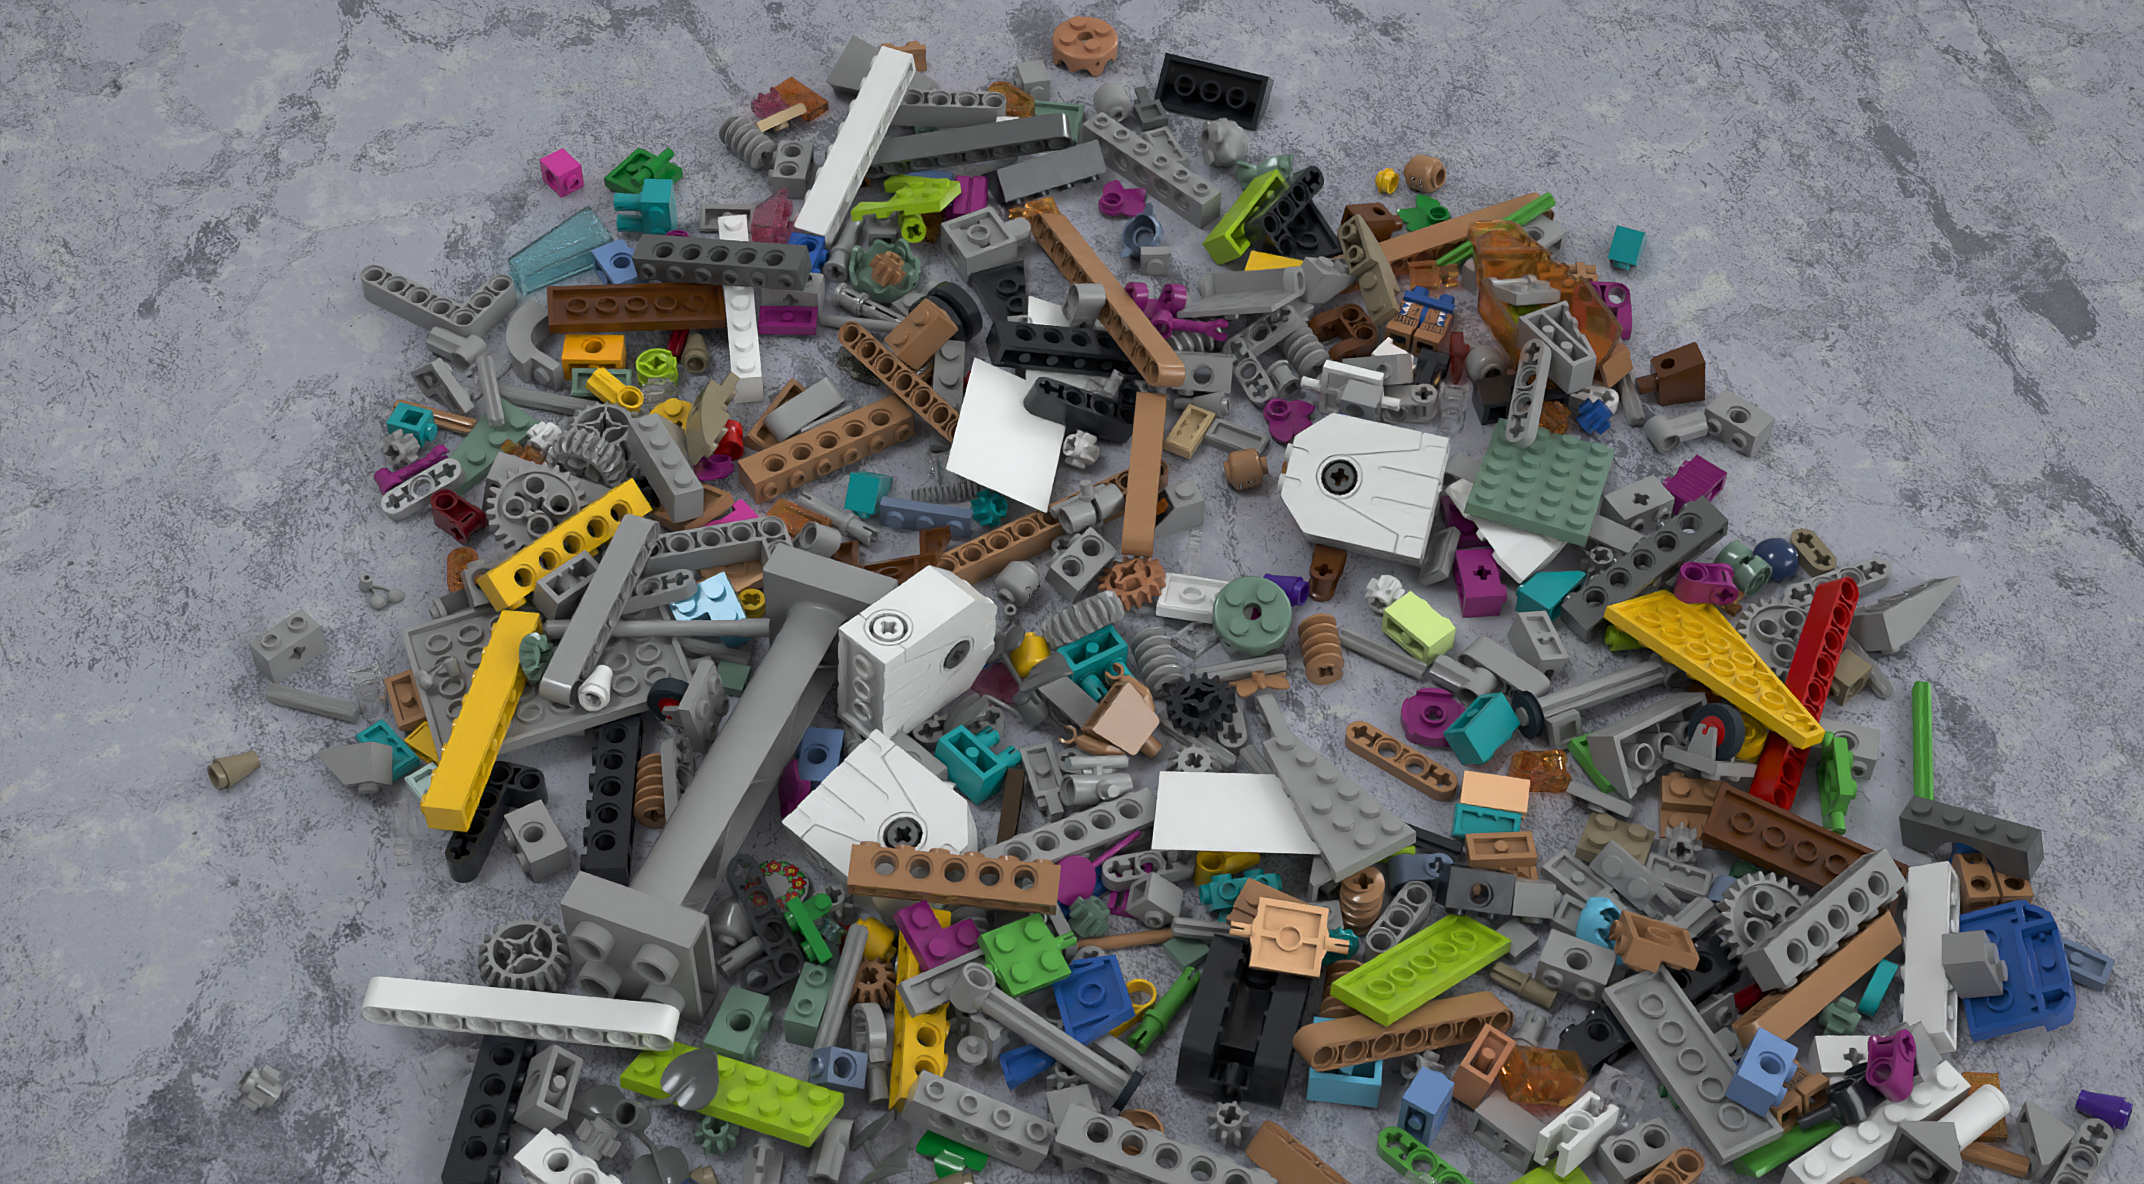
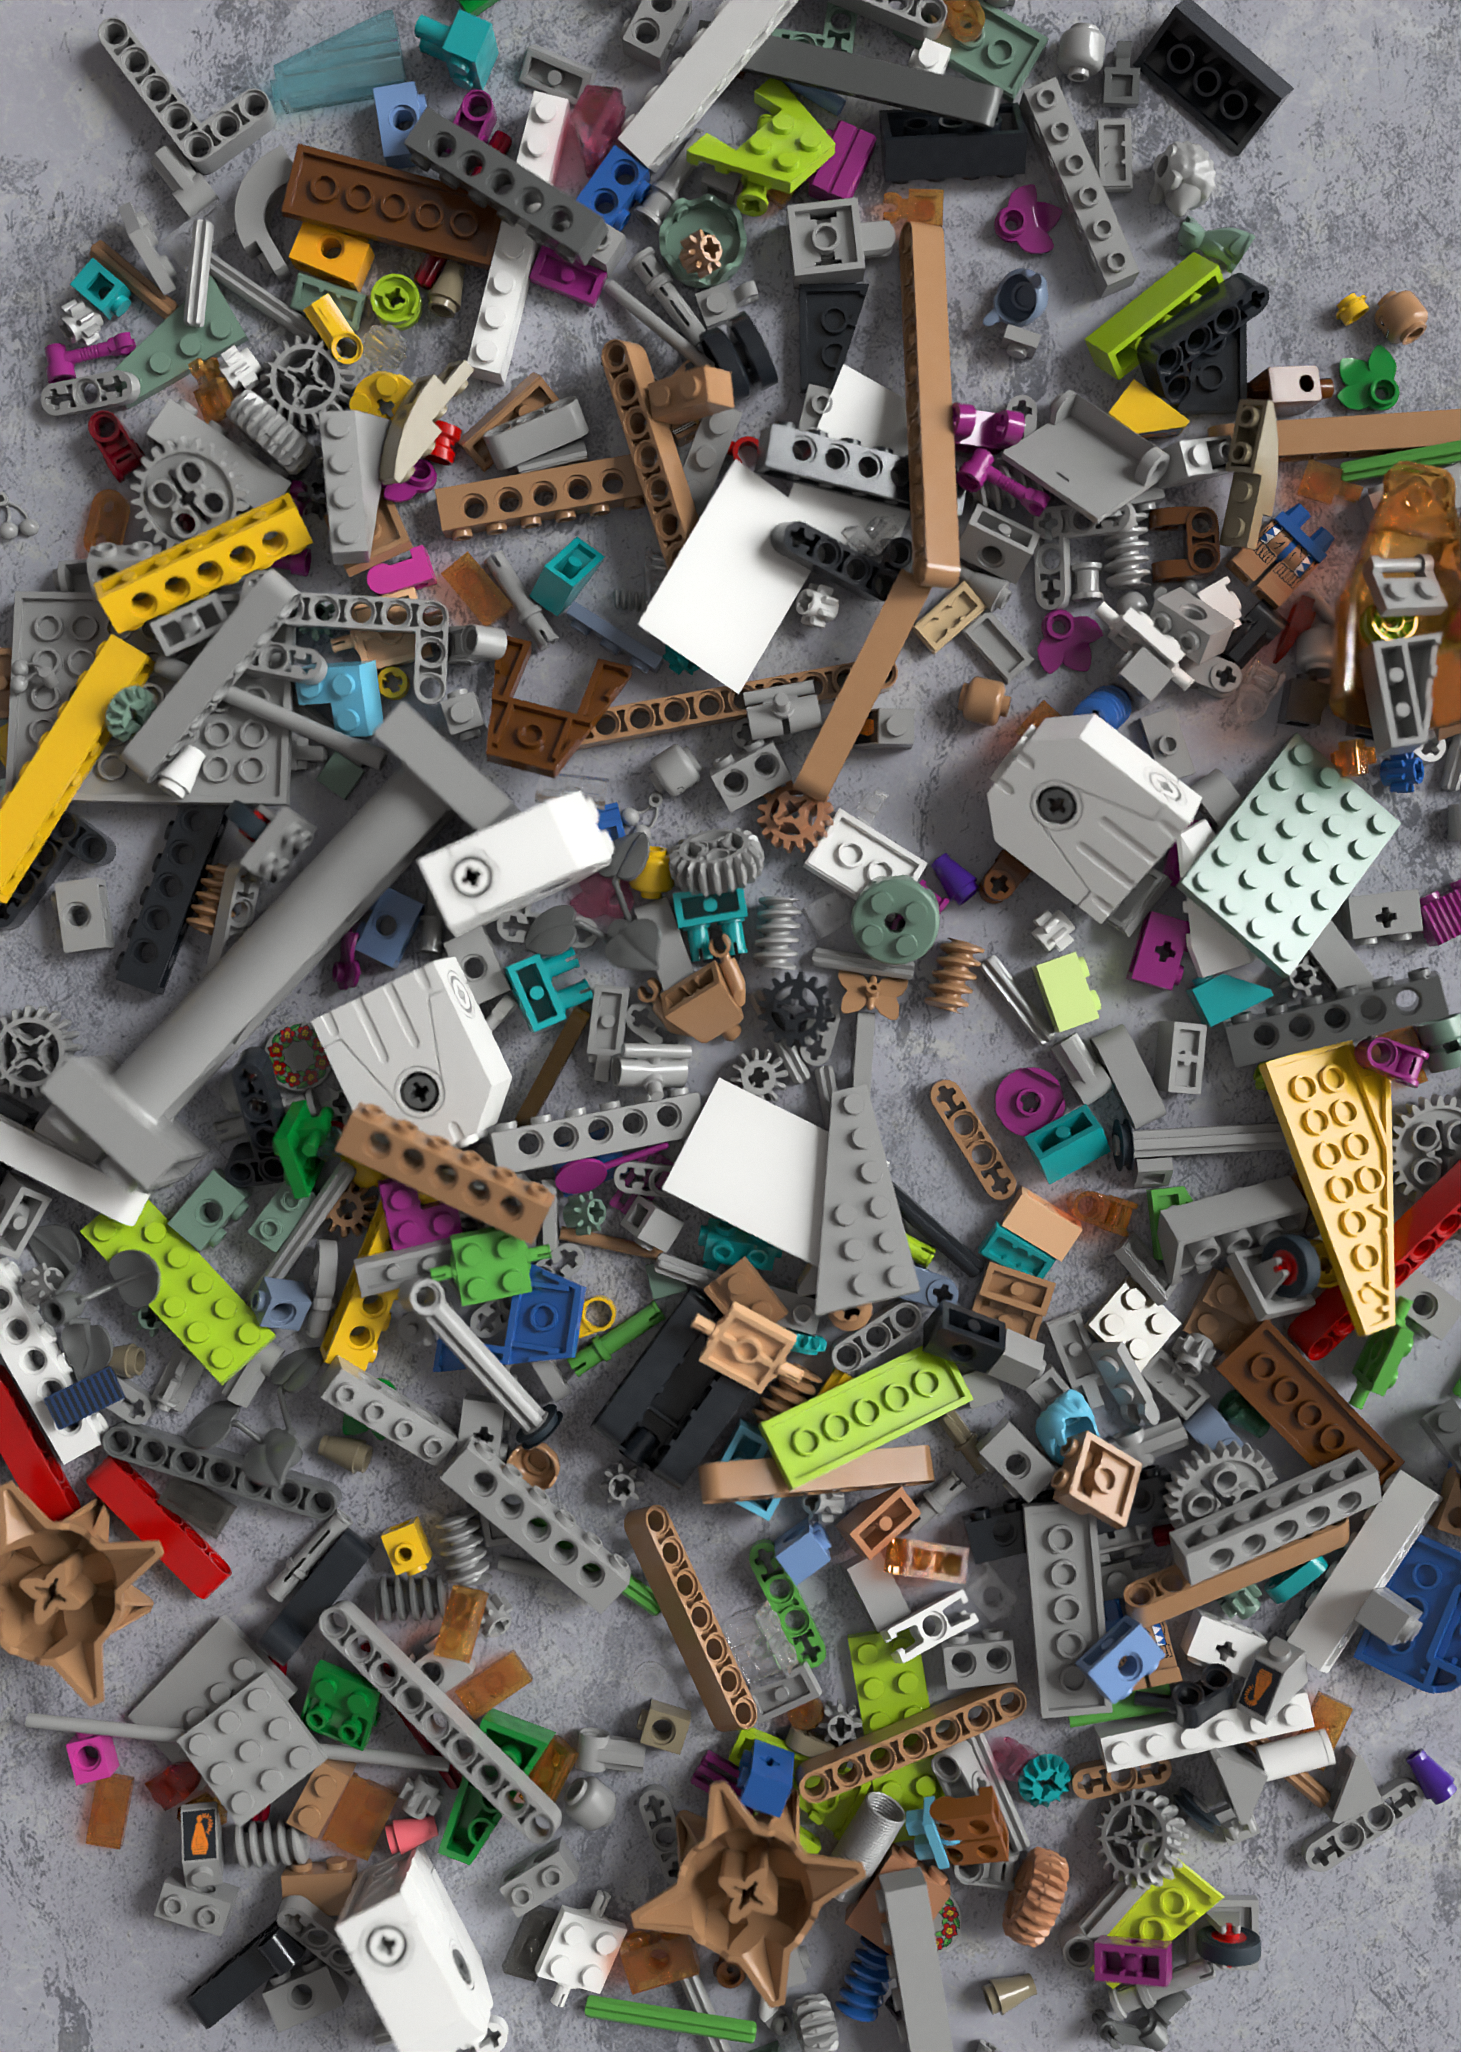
camera: 25 degrees right, 40 degrees up
(1083, 304) = (896, 413): light grey piece -> none
(1523, 426) = (1324, 746): light grey beam -> none
(1891, 1064) = (1248, 1689): magenta piece -> none

